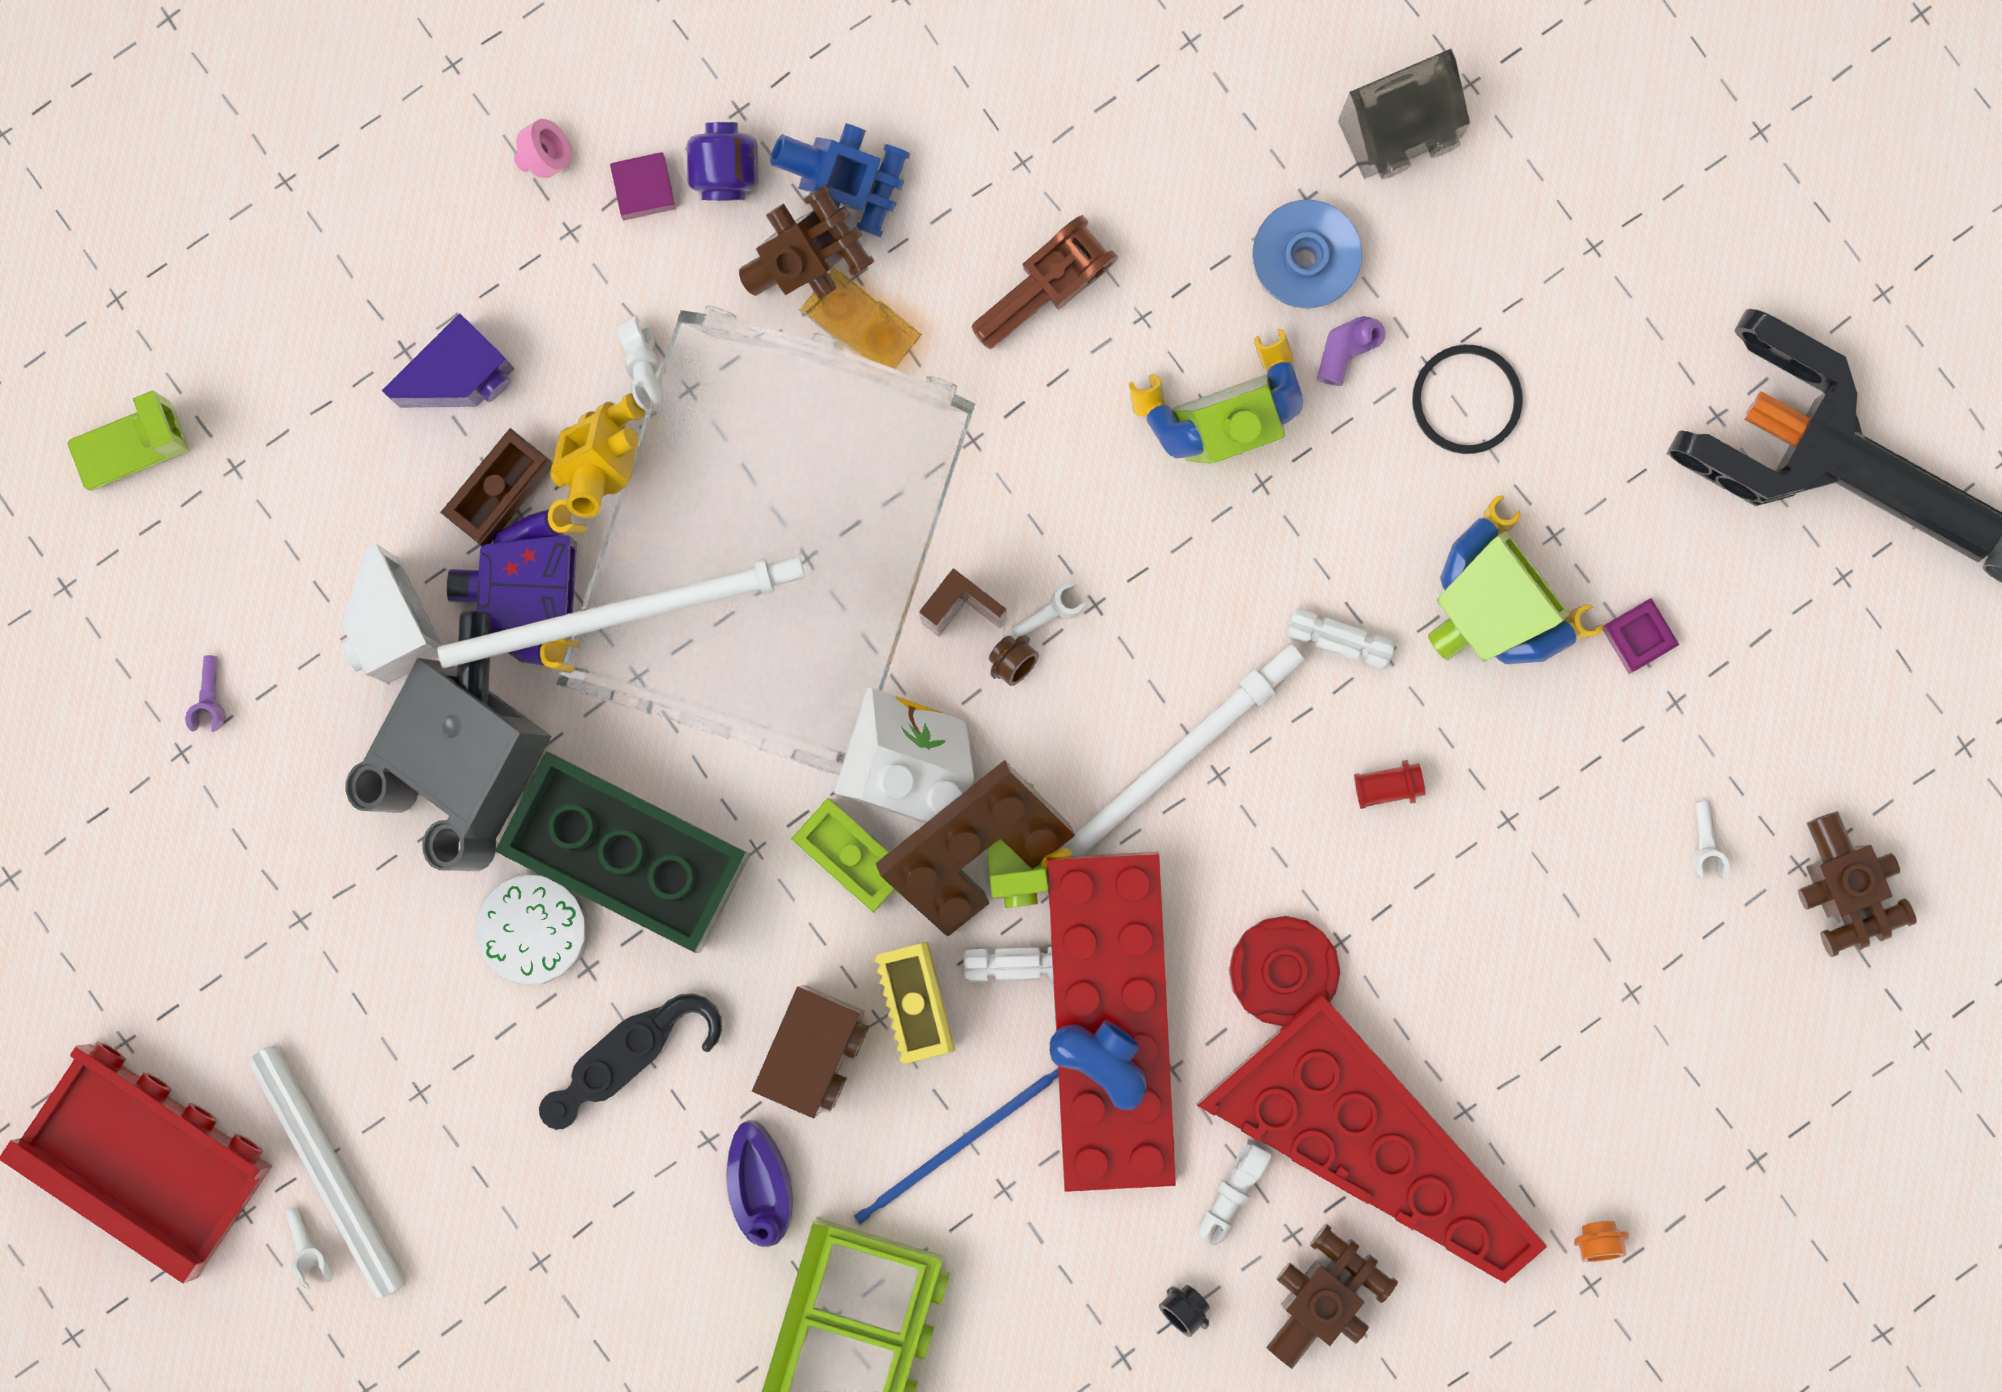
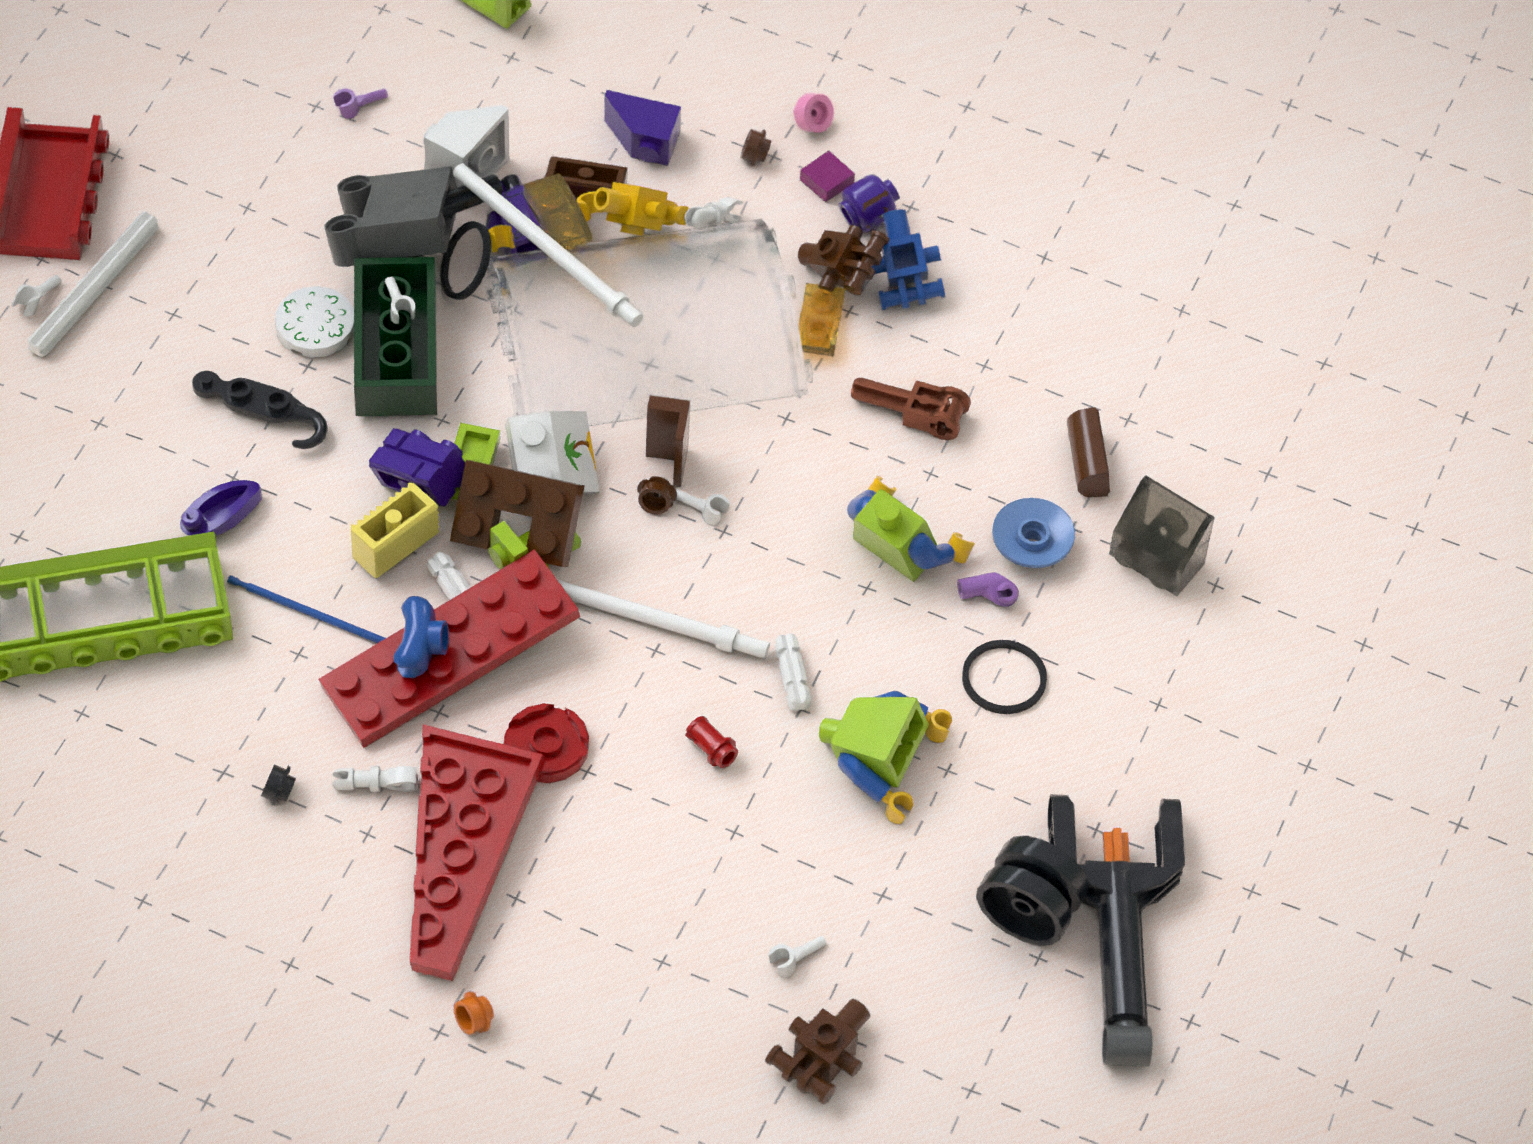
camera: 55 degrees right, 30 degrees down
(554, 249) = (755, 146): none -> reddish brown plate
(557, 562) = (558, 211): none -> clear yellow slope
(572, 682) = (444, 273): none -> black piece
(594, 834) = (399, 301): none -> white hand
(810, 1051) = (326, 482): reddish brown brick -> none
(839, 926) = (419, 460): none -> dark purple brick
(1227, 120) = (1088, 453): none -> reddish brown brick
(1321, 1302) = (335, 860): reddish brown piece -> none
(1640, 636) = (913, 848): magenta tile -> none
(1798, 549) = (1032, 890): none -> black wheel

